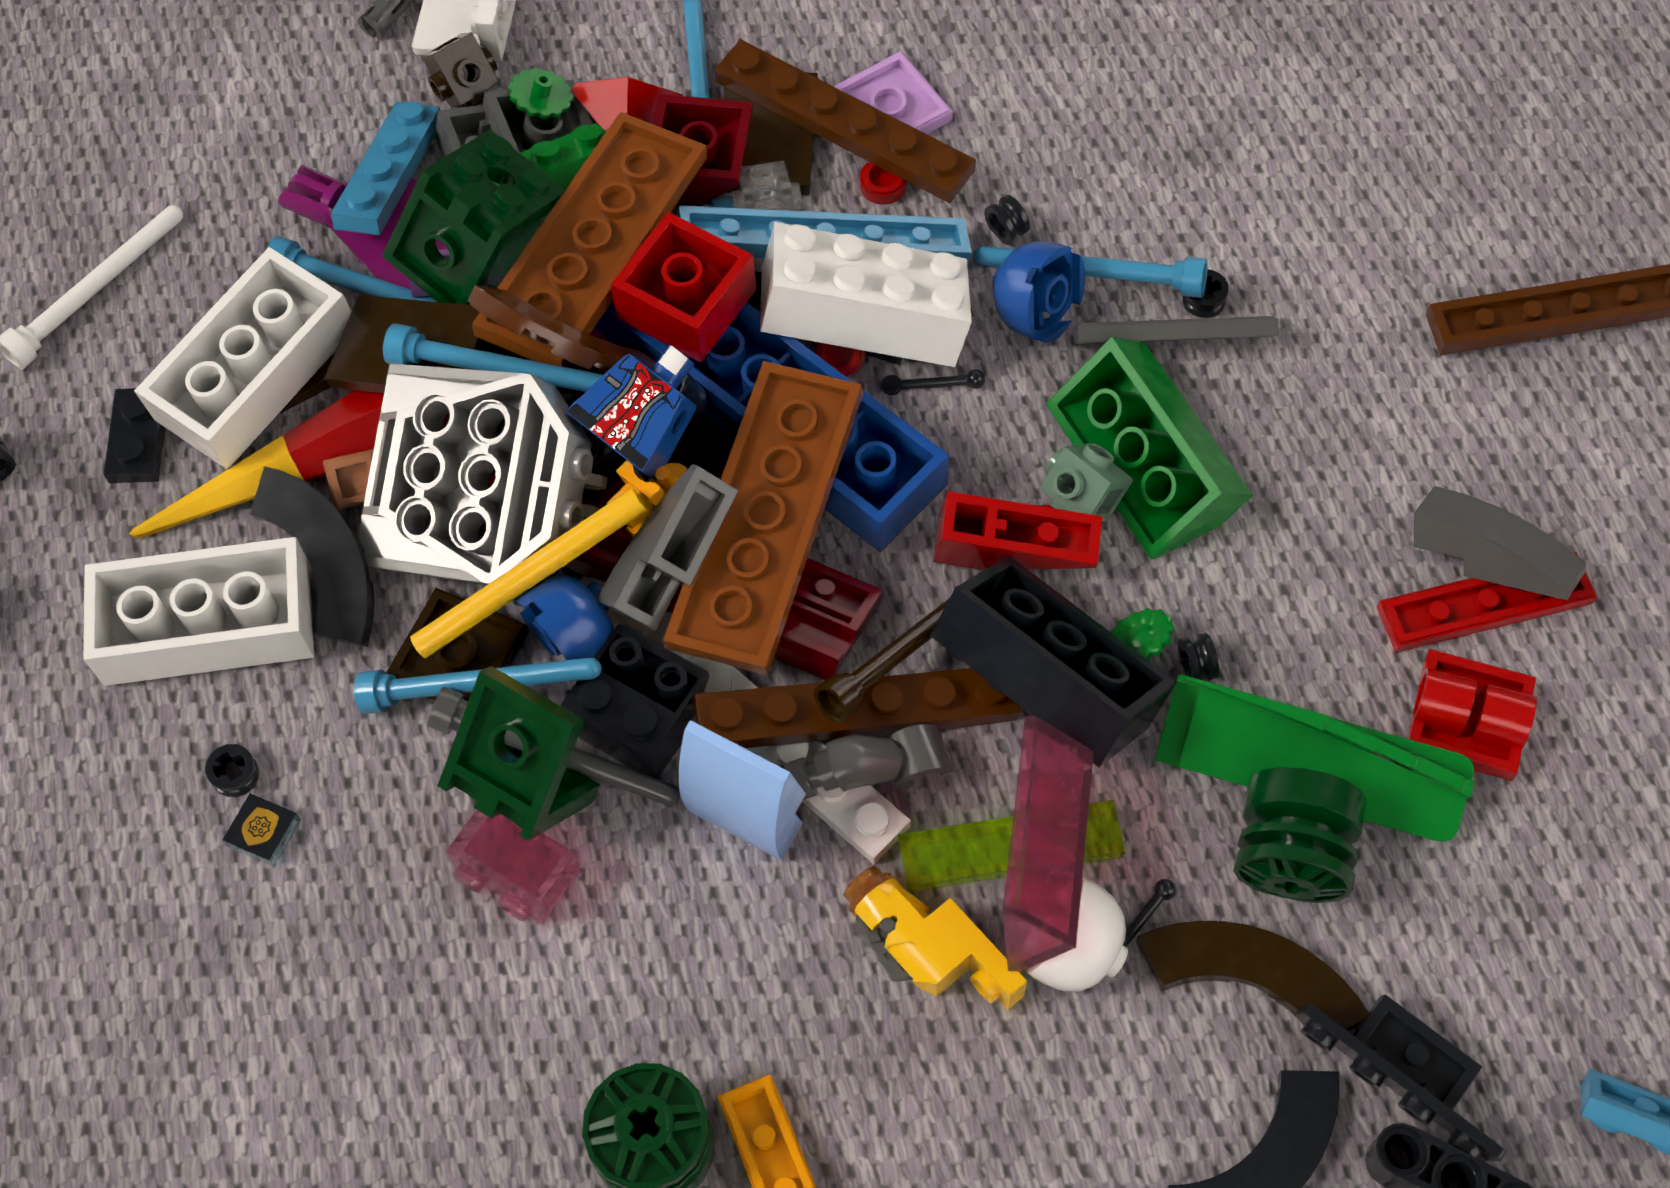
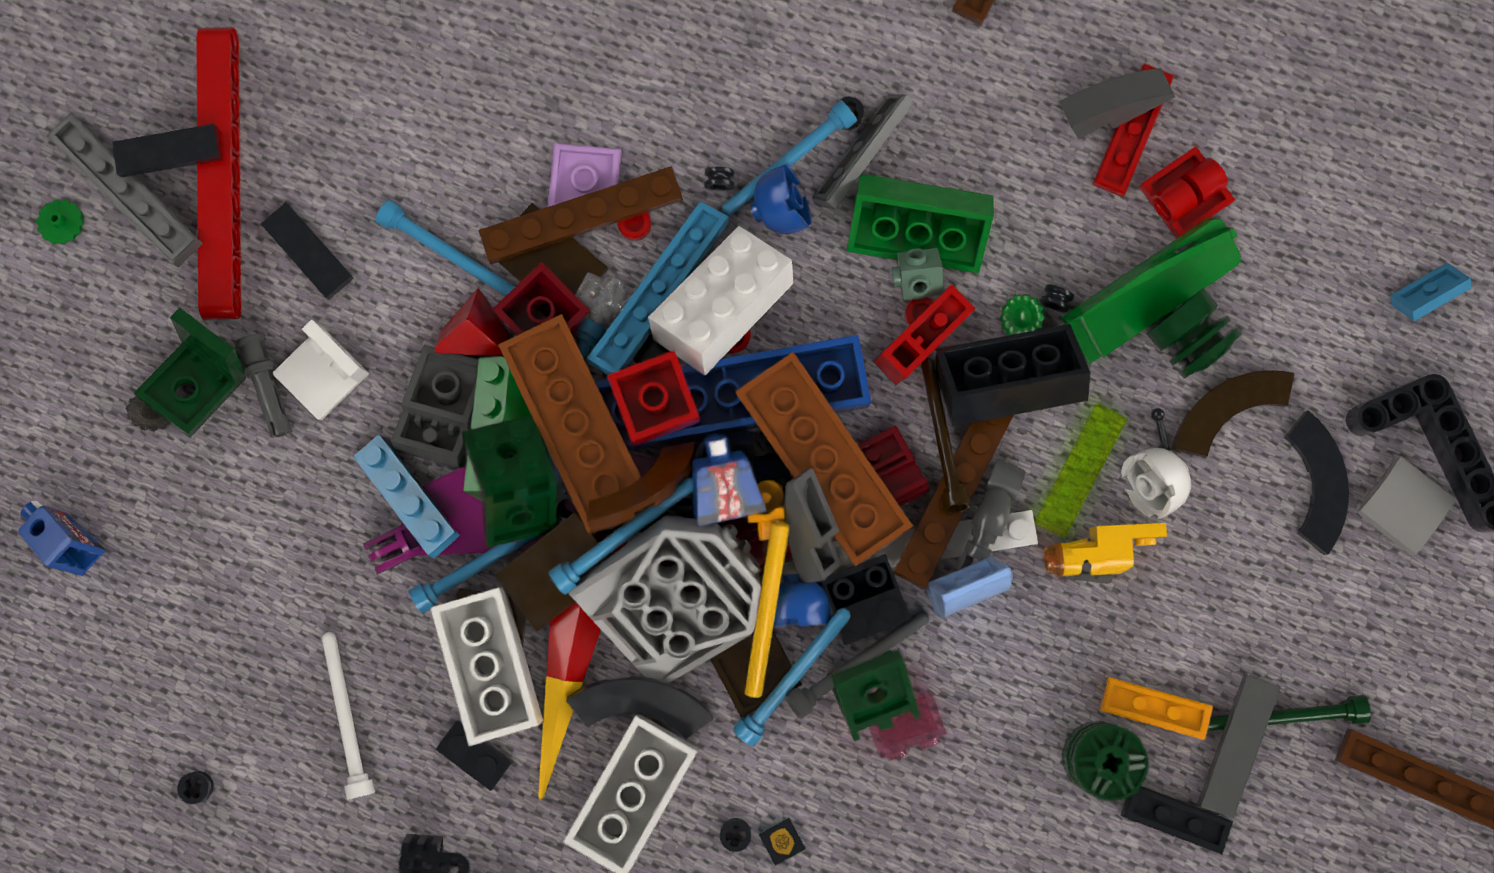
camera: 55 degrees left, 20 degrees up
(348, 478) = (603, 655): nougat tile -> none
(446, 70) = (367, 405): dark brown brick -> none
(540, 93) = (425, 372): green piece -> none
(893, 384) = (770, 321): black hinge -> none
(1046, 846) = (1116, 461): clear pink slope -> none
(1410, 1060) = (1331, 375): black bracket -> none

